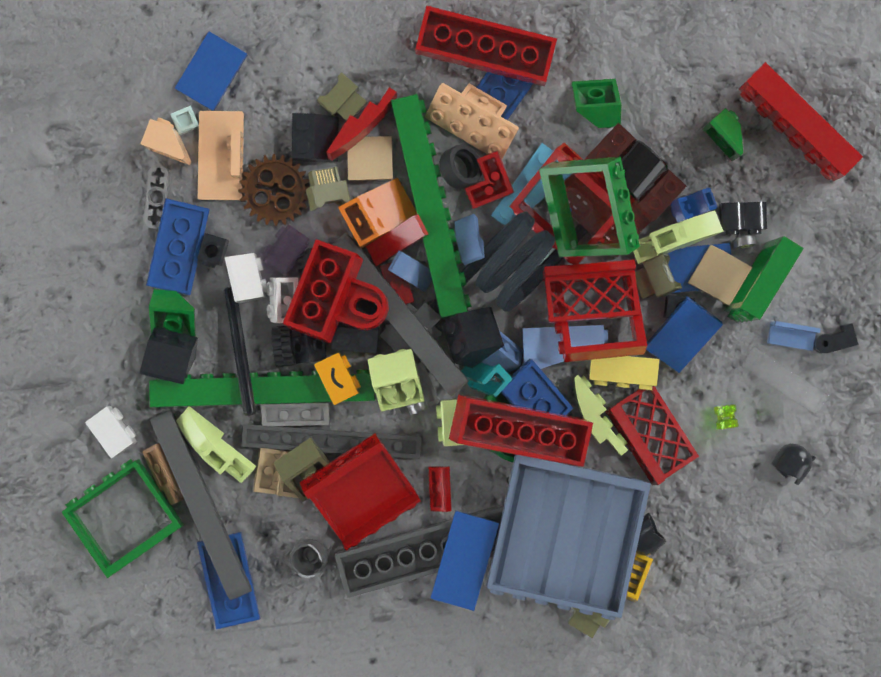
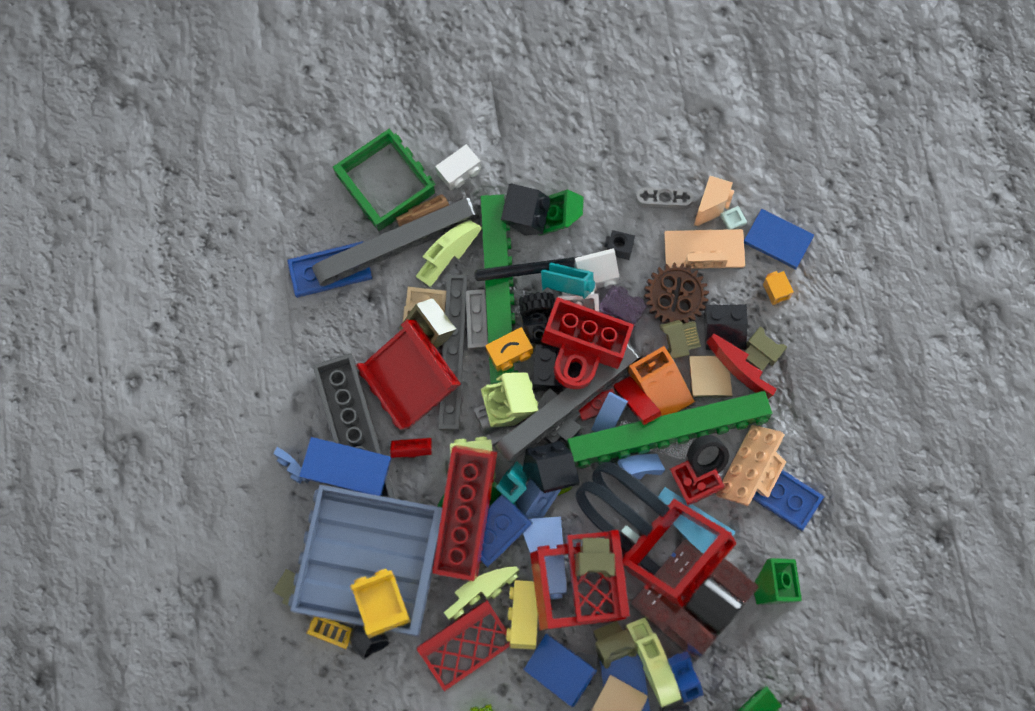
camera: 90 degrees right, 15 degrees down
(177, 246) = (621, 213): blue tile -> none
(258, 310) = (568, 280): none -> teal window
(269, 77) = (778, 287): none -> light orange brick
(309, 558) = (348, 333): dark grey helmet -> none
(448, 627) = (293, 469): none -> medium blue slope
(485, 46) = (822, 476): red brick -> none
(561, 214) = (670, 540): green window -> none
(575, 293) = (595, 558): none -> olive piece
(617, 522) = (380, 602): none -> yellow panel

